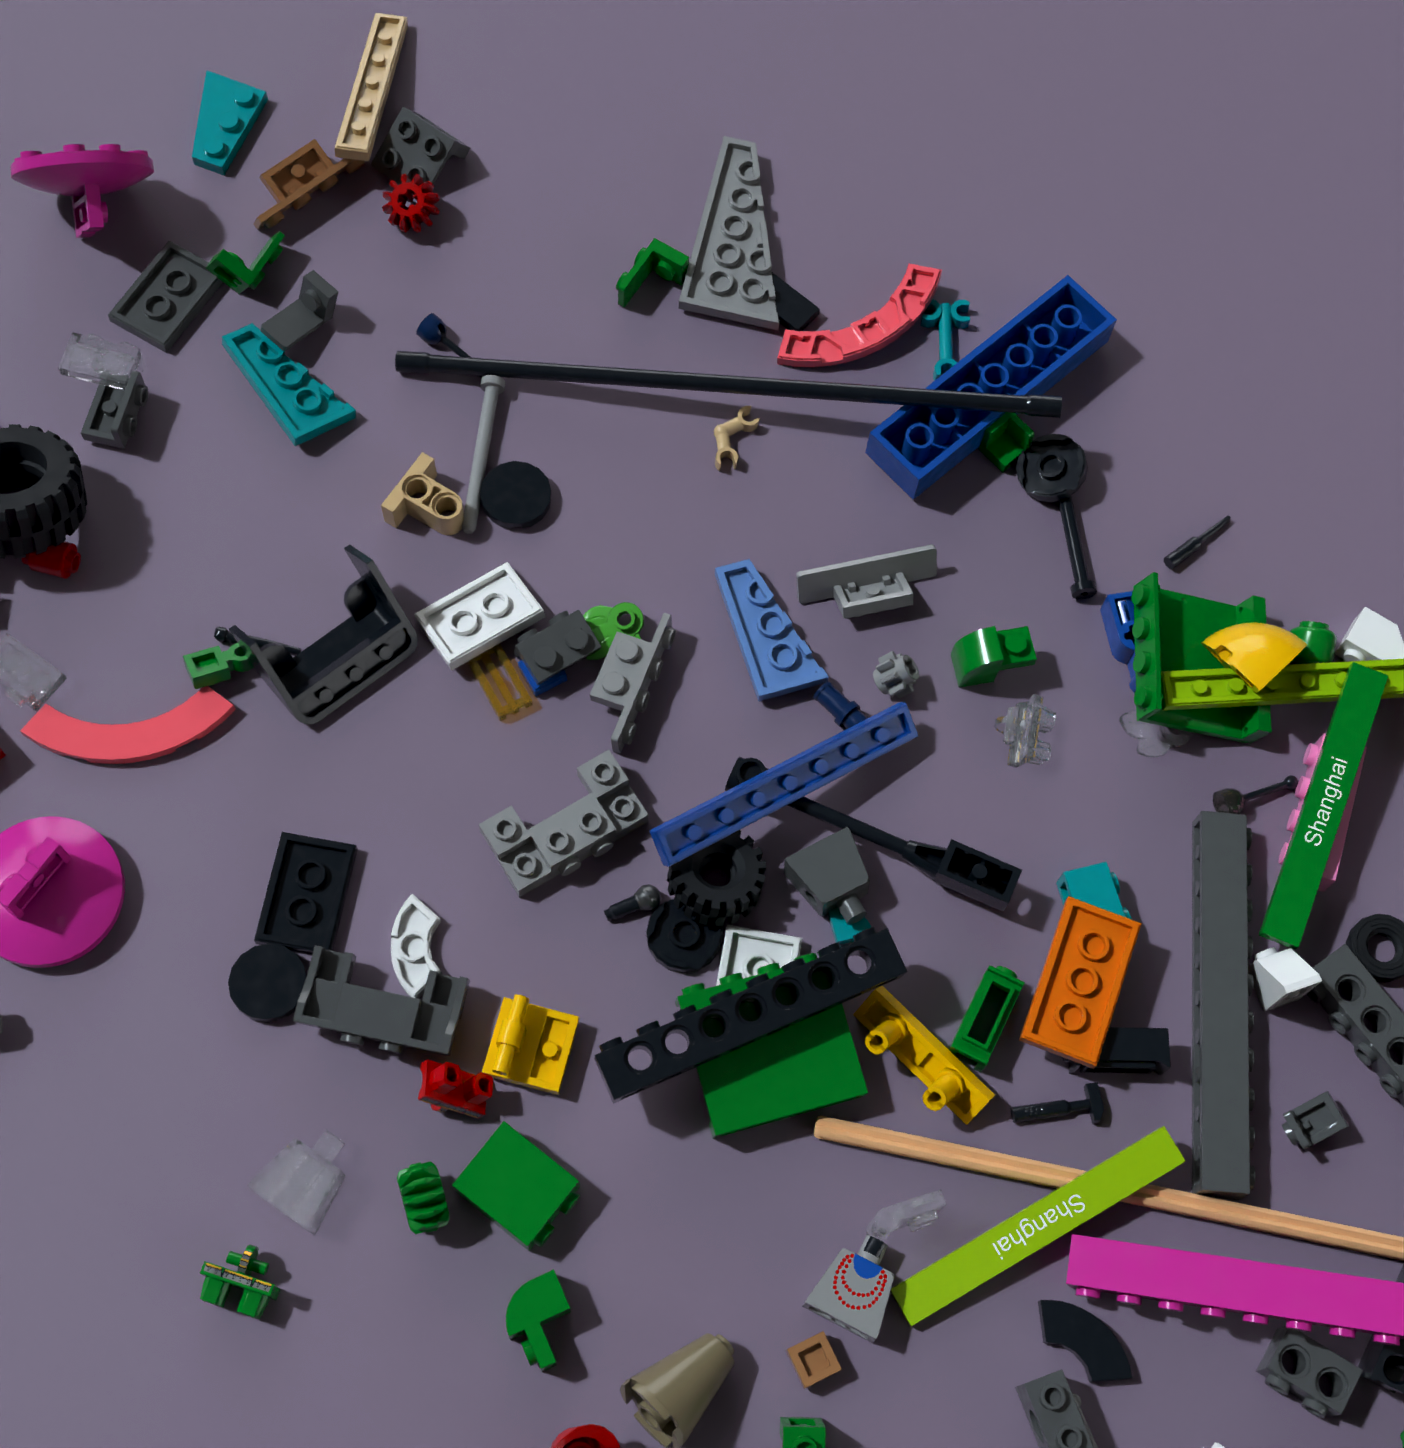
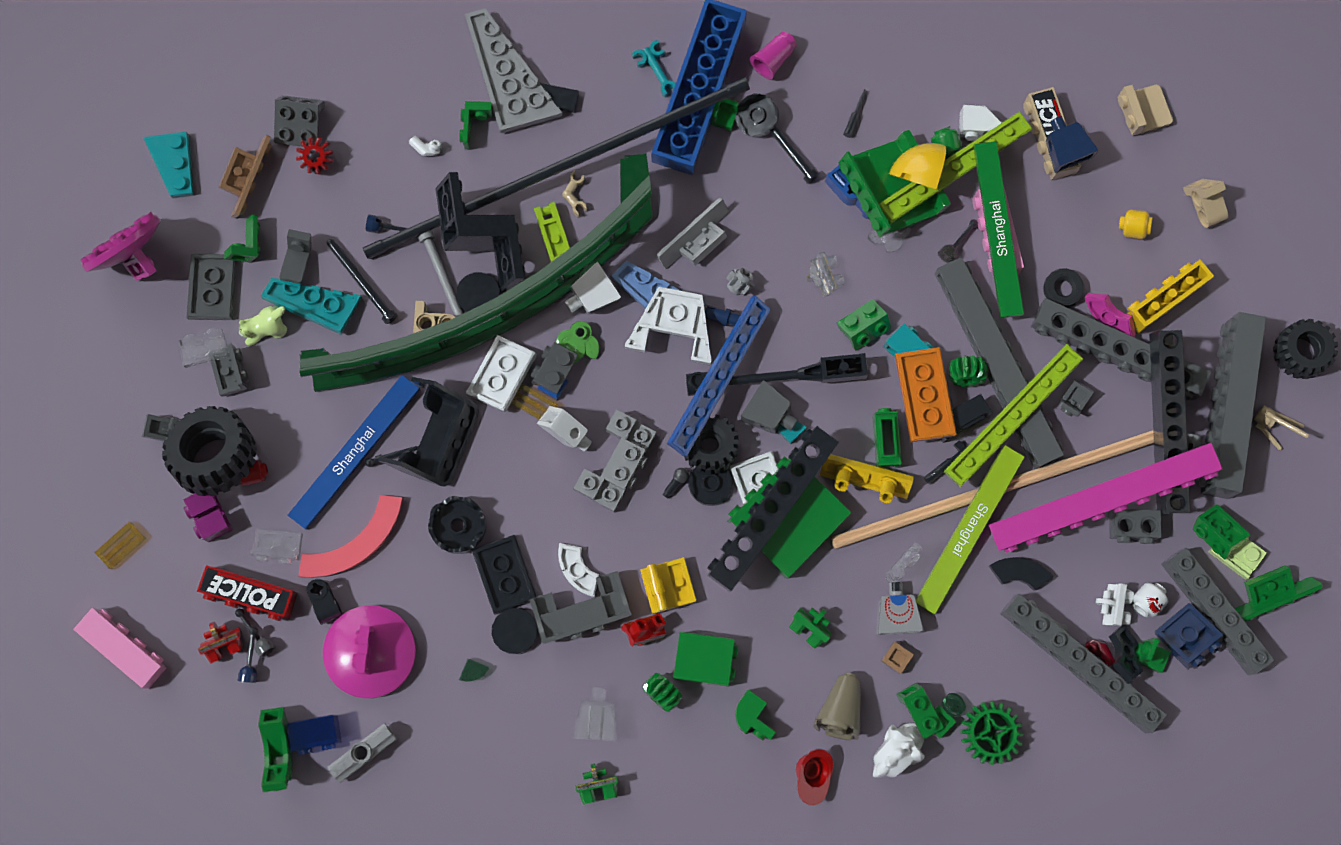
camera: 25 degrees left, 10 degrees up
(29, 789) = (324, 605): none -> black piece
(172, 1005) = (473, 671): none -> clear green tile
(199, 376) = (264, 324): none -> yellowish green animal
(207, 609) = (353, 452): none -> blue tile
(214, 666) = (377, 483): green plate -> none
(279, 760) = (452, 509): none -> black plate
(371, 87) = (246, 95): tan tile -> none
(375, 456) = (388, 316): none -> black bar
(511, 723) = (564, 428): none -> white torso
(566, 409) = (479, 232): none -> black bracket
(570, 278) = (427, 149): none -> white arm
(627, 675) = (599, 362): light grey bracket -> none
(669, 472) = (552, 230): none -> lime plate
(676, 573) = (592, 291): none -> white torso
(703, 1215) = (803, 619): none -> green hips
(772, 665) = (674, 314): none -> white wing
(807, 475) = (501, 313): none -> dark green piece
(868, 333) = (613, 91): coral tile -> none
(987, 651) = (783, 241): green brick -> none
(1046, 835) = (864, 324): none -> green bracket
(1121, 401) = (773, 55): none -> dark pink plant
(1166, 985) = (967, 371): none -> green gear
(1200, 1088) = (1013, 415): none -> lime tile
(1281, 977) = (1022, 333): white slope -> none

